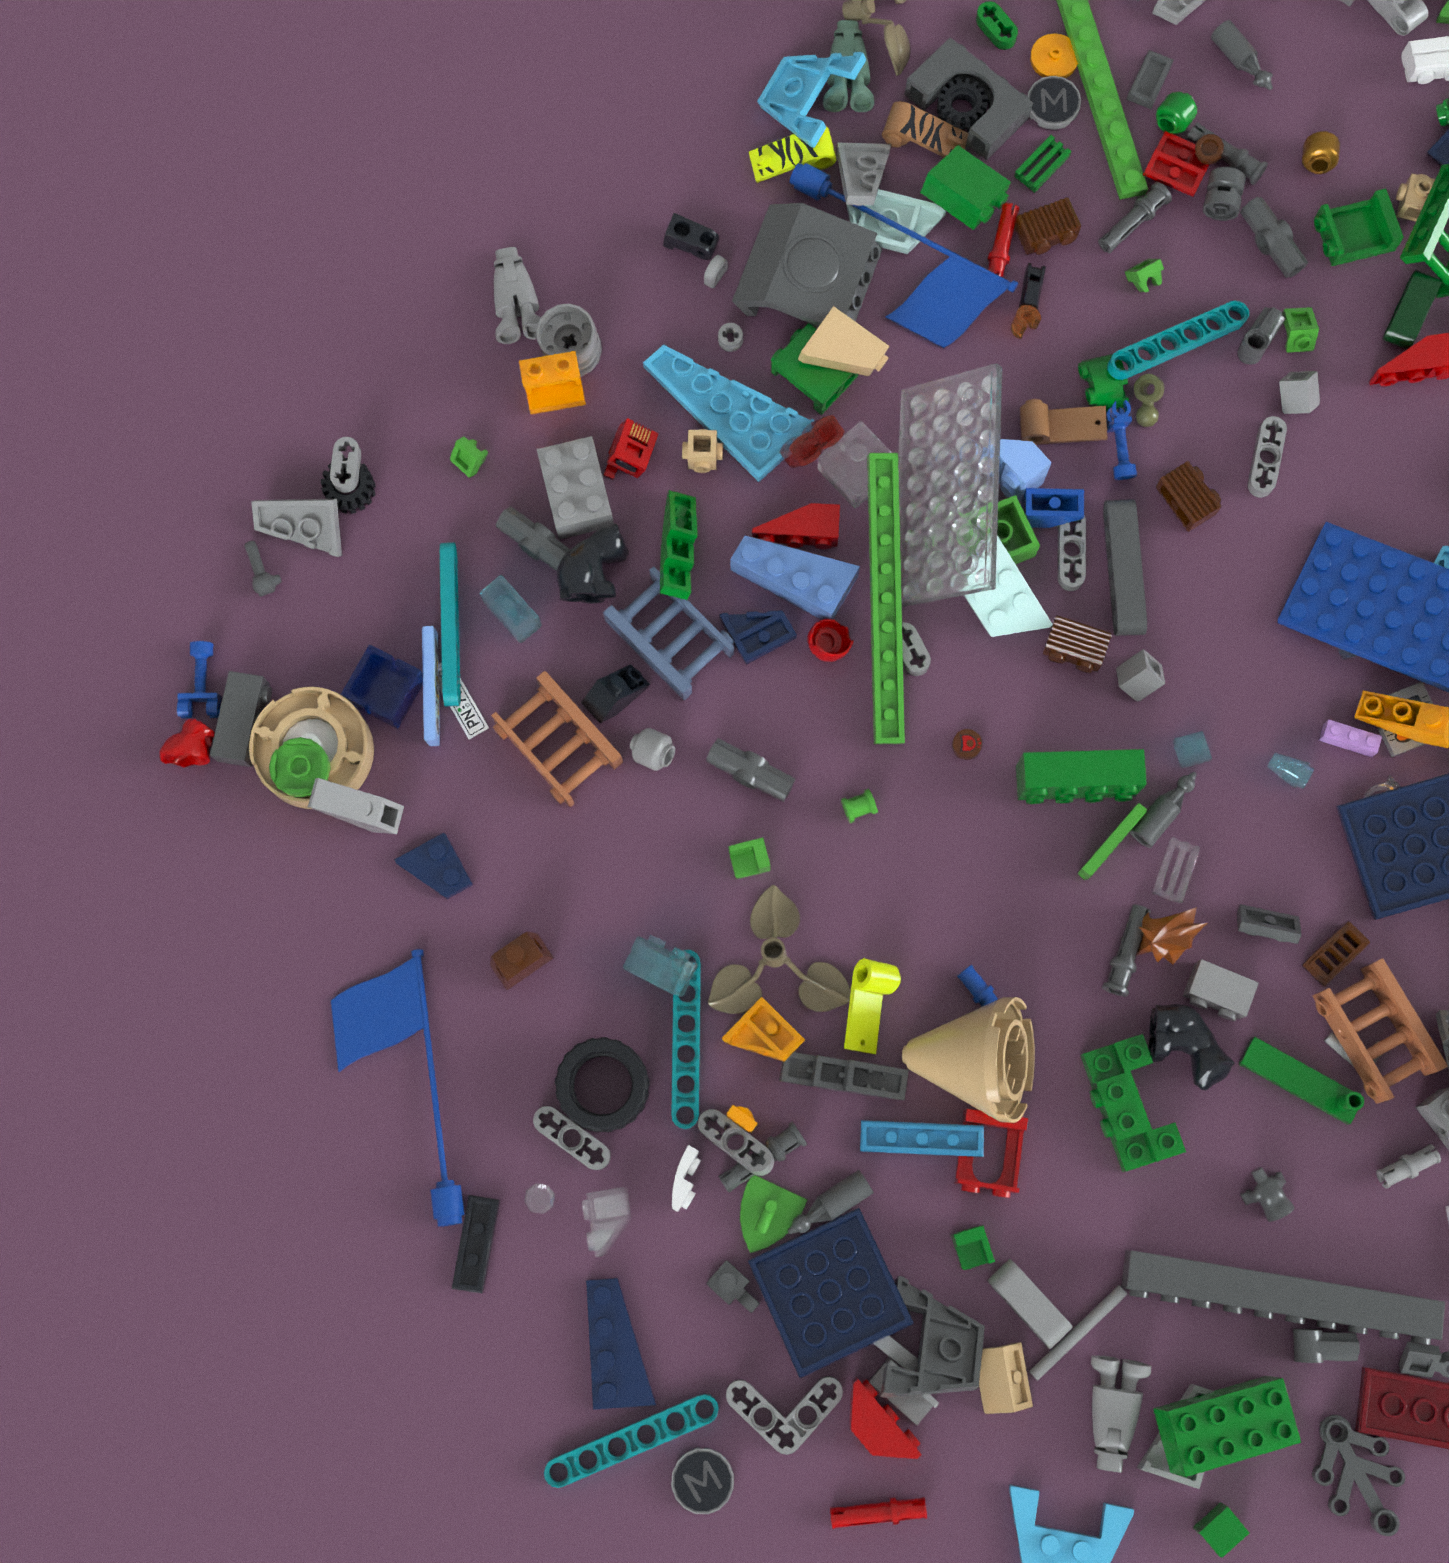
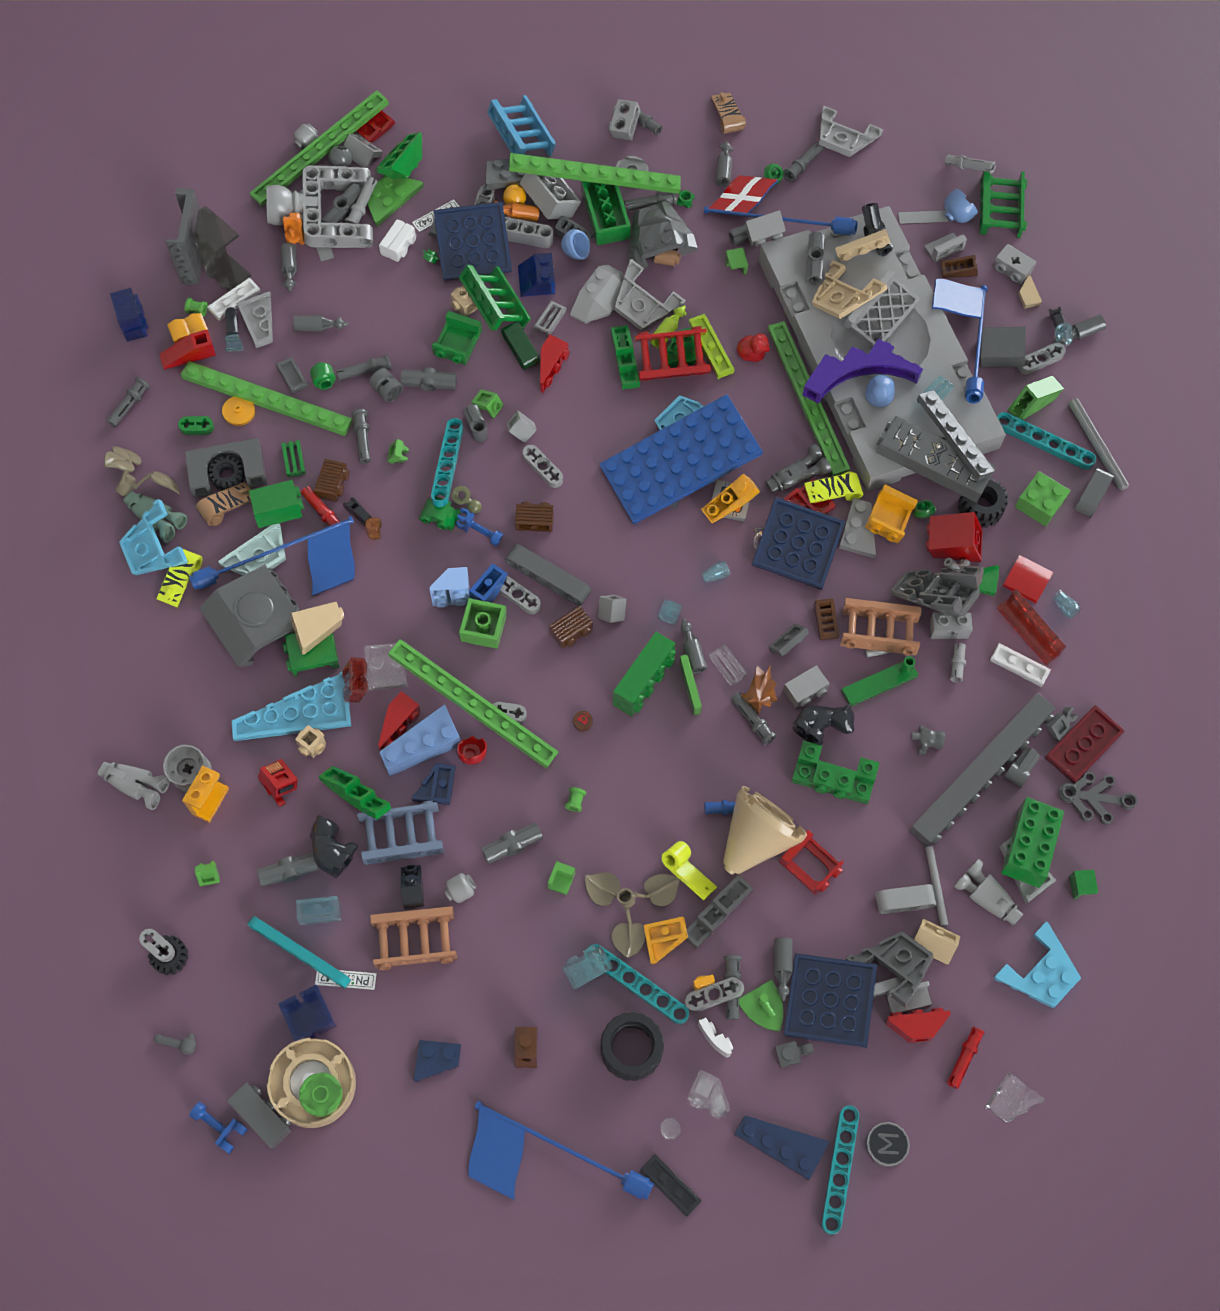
camera: 60 degrees left, 10 degrees down
(189, 745) = (252, 1157): red hair -> none
(300, 520) = (170, 994): light grey wing -> none
(356, 807) = (370, 1077): light grey slope -> none
(431, 707) = (327, 988): light blue tile -> none
(575, 487) = (275, 825): light grey brick -> none
(594, 1145) = (665, 1088): light grey beam -> none
(690, 237) = (181, 663): black leg -> none
(715, 271) = (212, 665): light grey tile -> none
(723, 341) = (255, 677): light grey bush -> none
(791, 1421) = (887, 1071): light grey beam -> none
(861, 170) = (221, 548): light grey wing -> none
(922, 1138) = (780, 894): dark azure tile -> none
(949, 485) = (437, 625): clear plate -> none
(972, 1247) = (856, 907): green panel -> none
(1011, 605) = (516, 644): light aqua wing -> none
(1054, 102) = (265, 428): black tile -> none
(1061, 425) = (445, 551): medium nougat door -> none
(1176, 164) = (350, 394): red slope -> none
(1209, 149) = (356, 374): reddish brown tile -> none
(1321, 152) = (402, 326): pearl gold head -> none
(1350, 738) = (720, 533): lavender piece -> none

